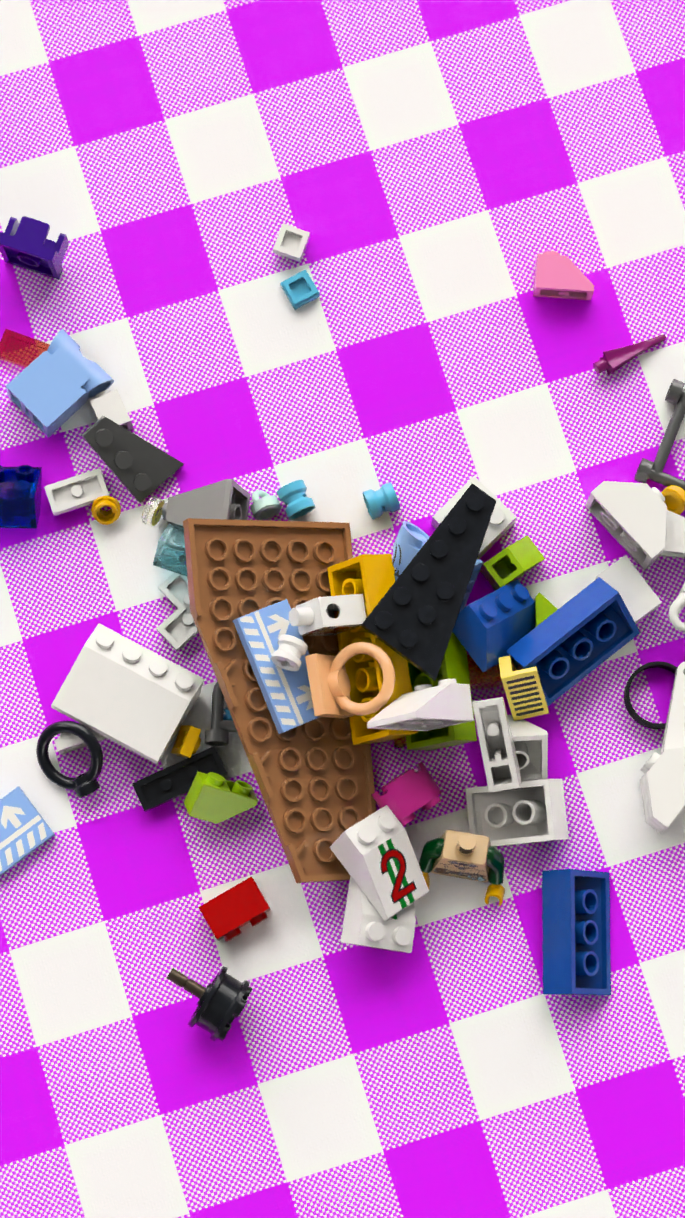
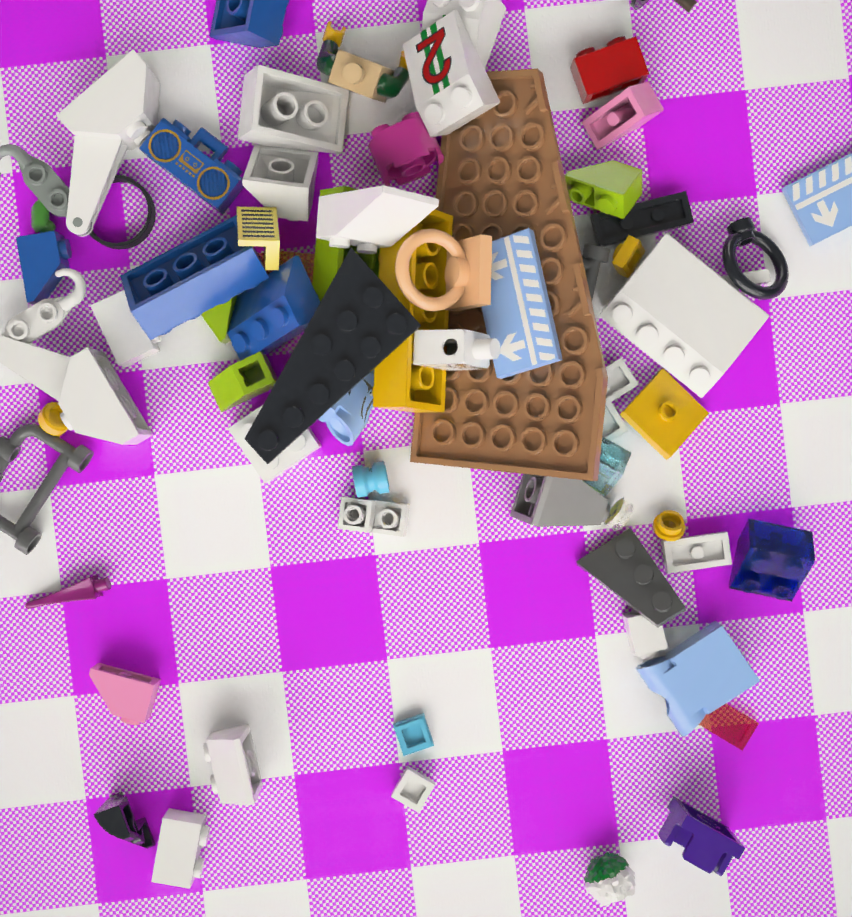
camera: 170 degrees left, 10 degrees up
(105, 198) = (609, 879): none -> piece
(128, 606) = (664, 413): none -> yellow plate
(214, 870) = (622, 114): none -> bright pink slope
(265, 506) = (495, 496): light aqua tile -> none
(289, 653) = (506, 311): white wheel -> none
(295, 497) = (462, 498): medium azure wheel -> none
(372, 470) = (373, 516): none -> white slope
(451, 233) = (234, 765): none -> white slope
(485, 156) = (179, 848): none -> white piece
(496, 745) = (299, 170): white slope -> none
(541, 168) = (119, 821): none -> black slope
(587, 741) = (205, 176): none -> blue piece

